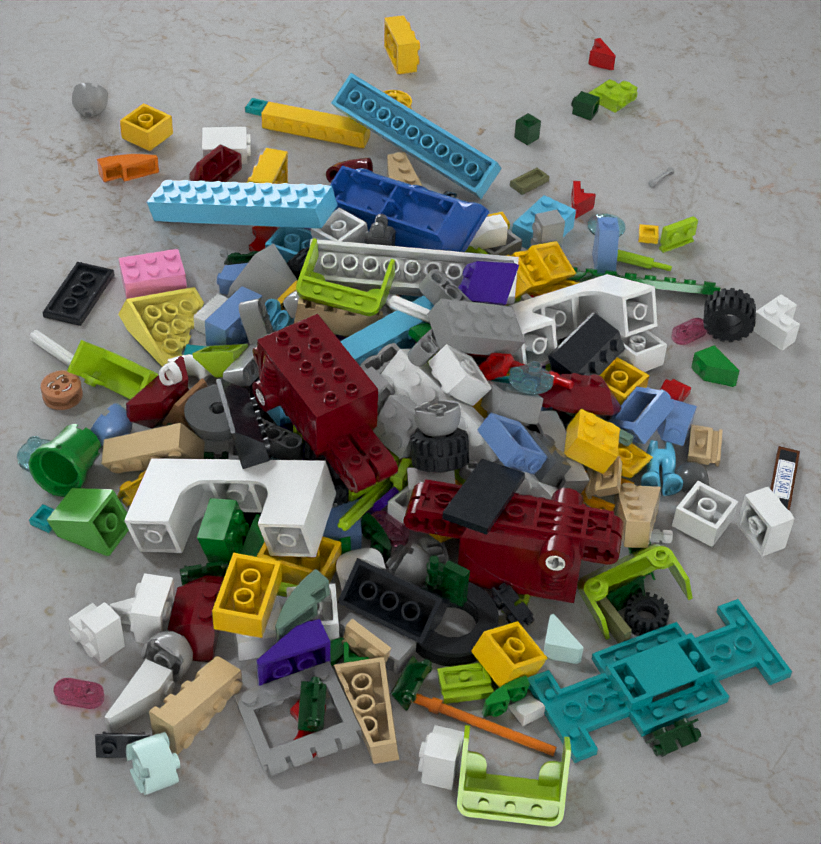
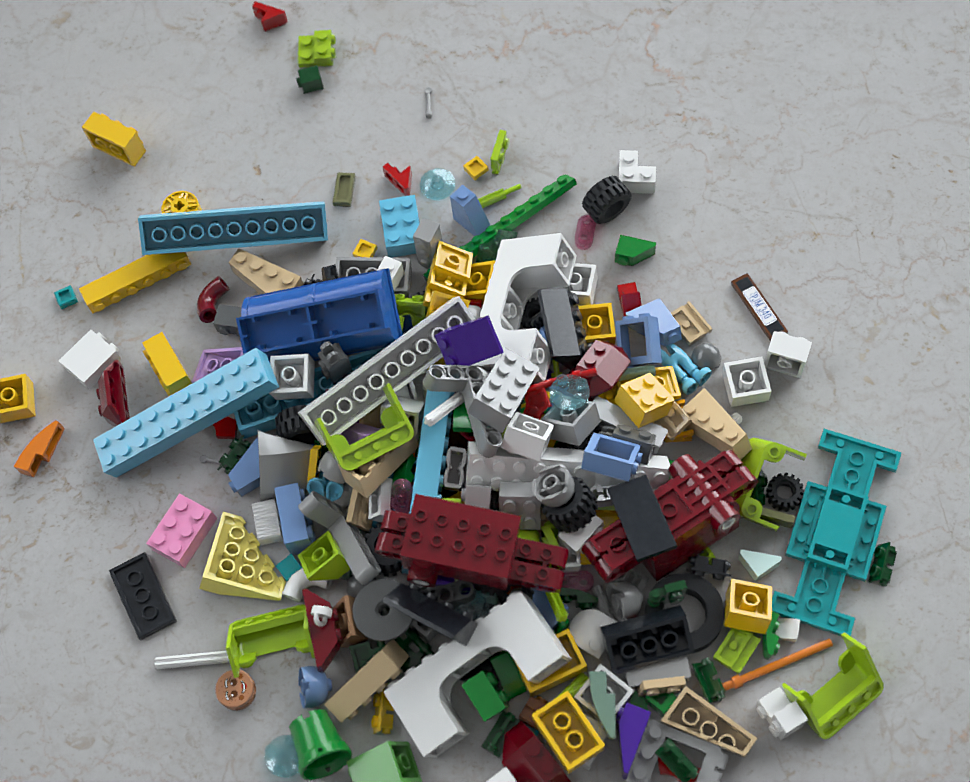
camera: 35 degrees left, 20 degrees up
(527, 129) = (294, 141): dark green brick -> none

